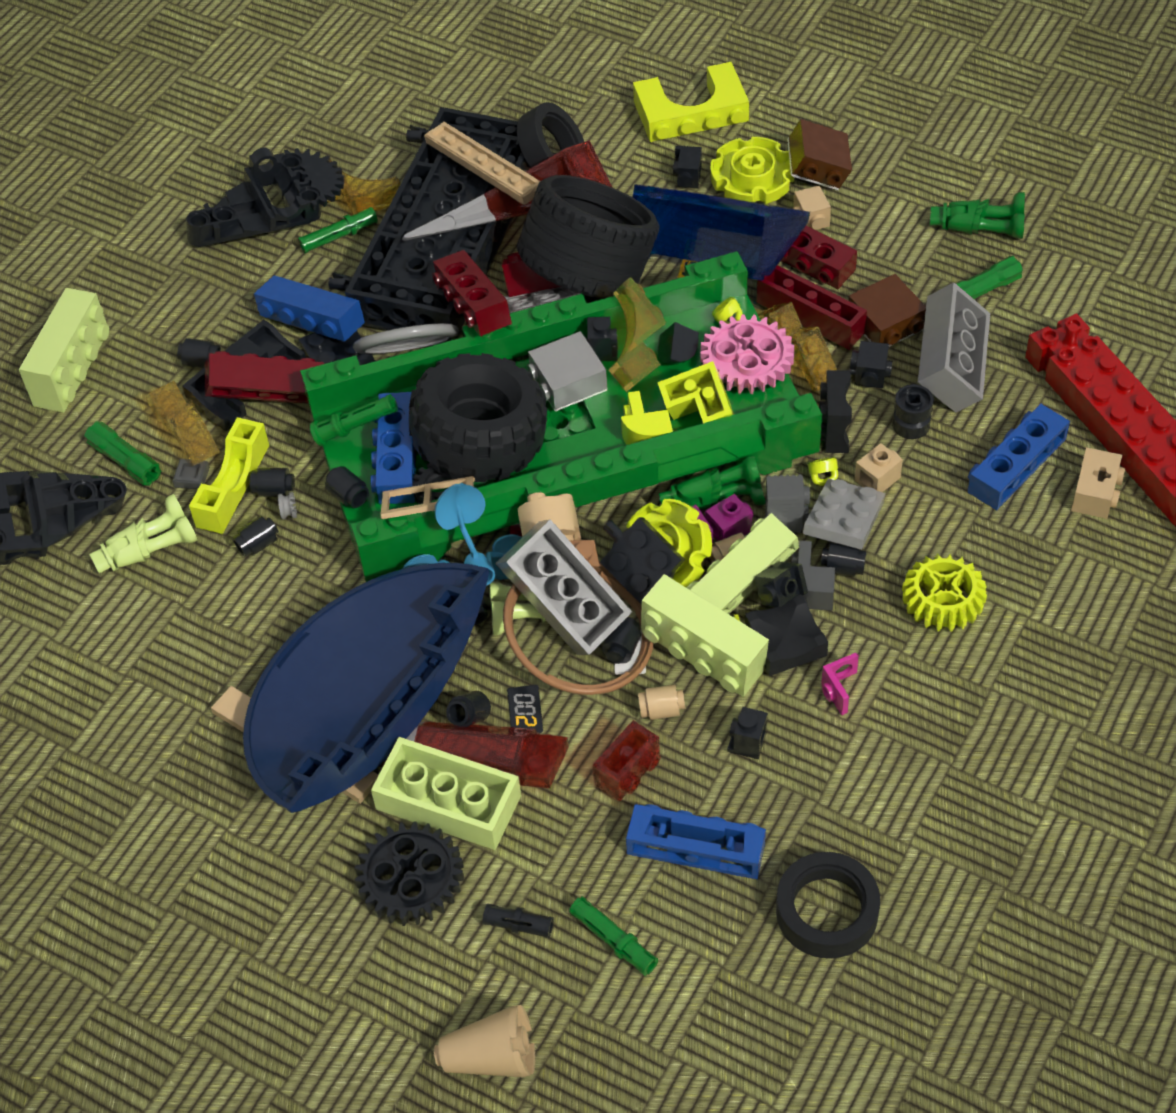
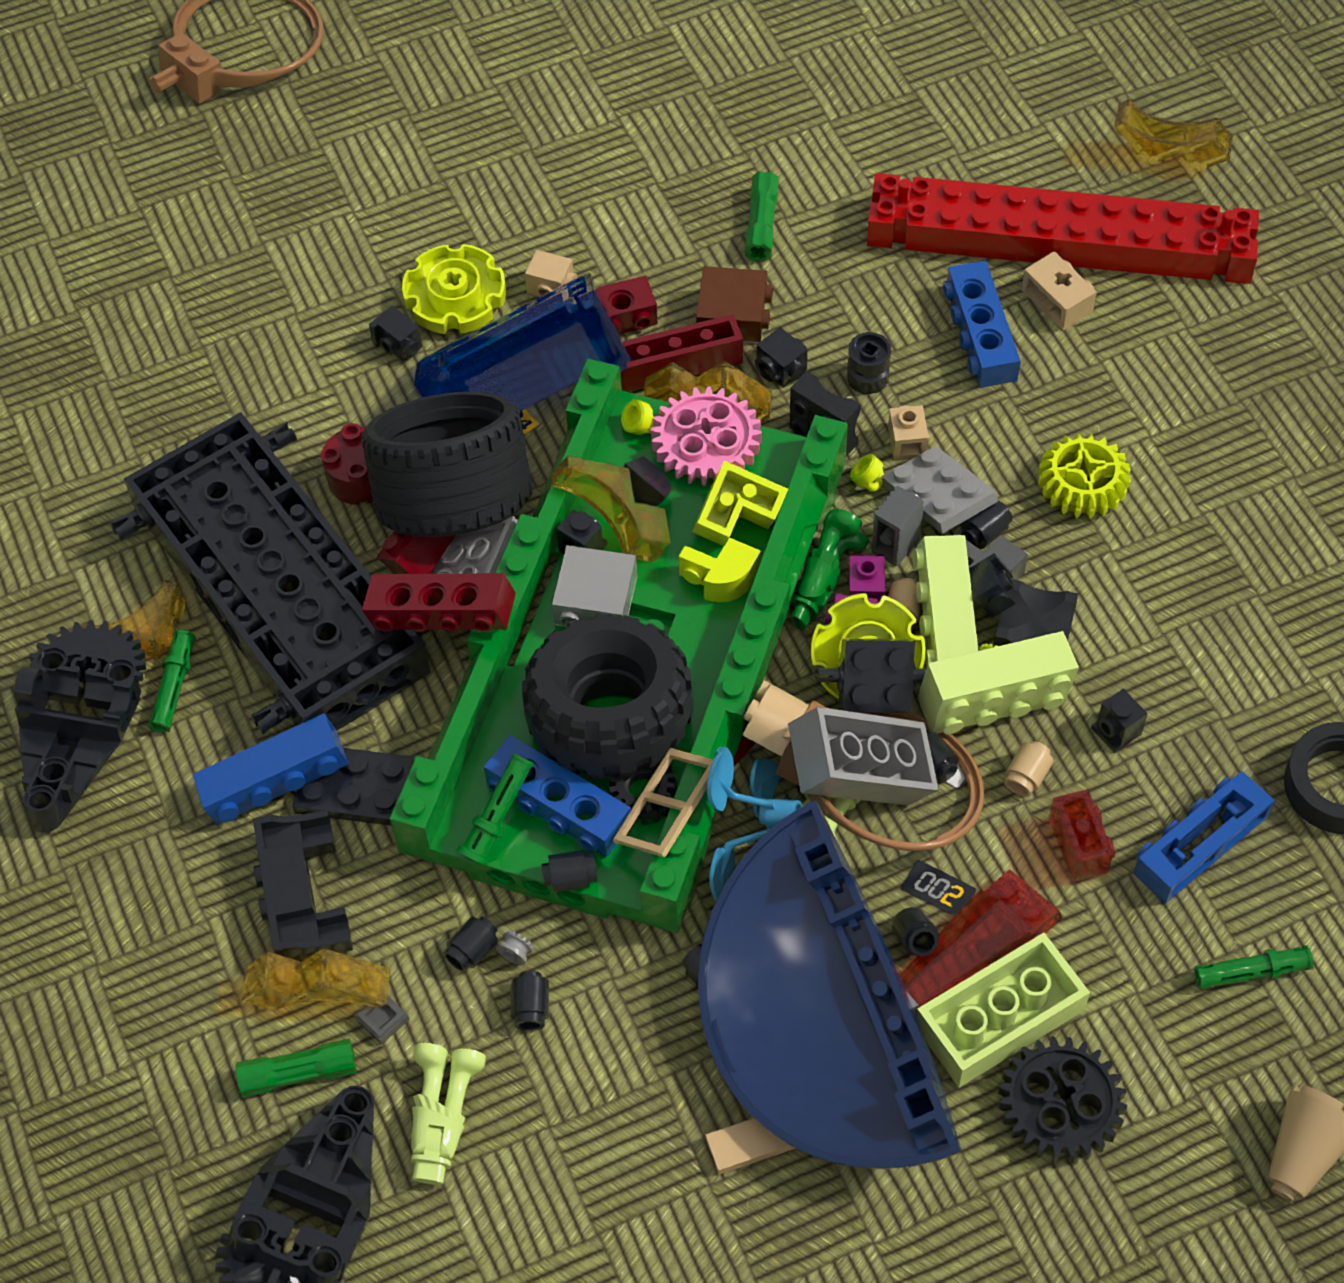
camera: 55 degrees left, 5 degrees up
(64, 350) = (104, 1039): yellowish green brick -> none
(195, 352) = (223, 912): black brick -> none
(244, 451) = (444, 995): neon yellow arch -> none
(256, 377) = (339, 866): dark red brick -> none
(406, 338) = (451, 661): light grey wedge -> none
(483, 162) = (260, 486): tan tile -> none
(497, 205) = (333, 477): clear red plate -> none
(498, 916) = (1179, 1037): black pin -> none
(556, 122) = (270, 418): black tyre -> none
(667, 120) = (313, 312): neon yellow arch -> none
(819, 154) = (495, 224): reddish brown piece -> none
(830, 681) = (1121, 624): dark pink bracket -> none
(954, 347) = (830, 282): light grey brick -> none
(972, 215) = (674, 168): green piece -> none

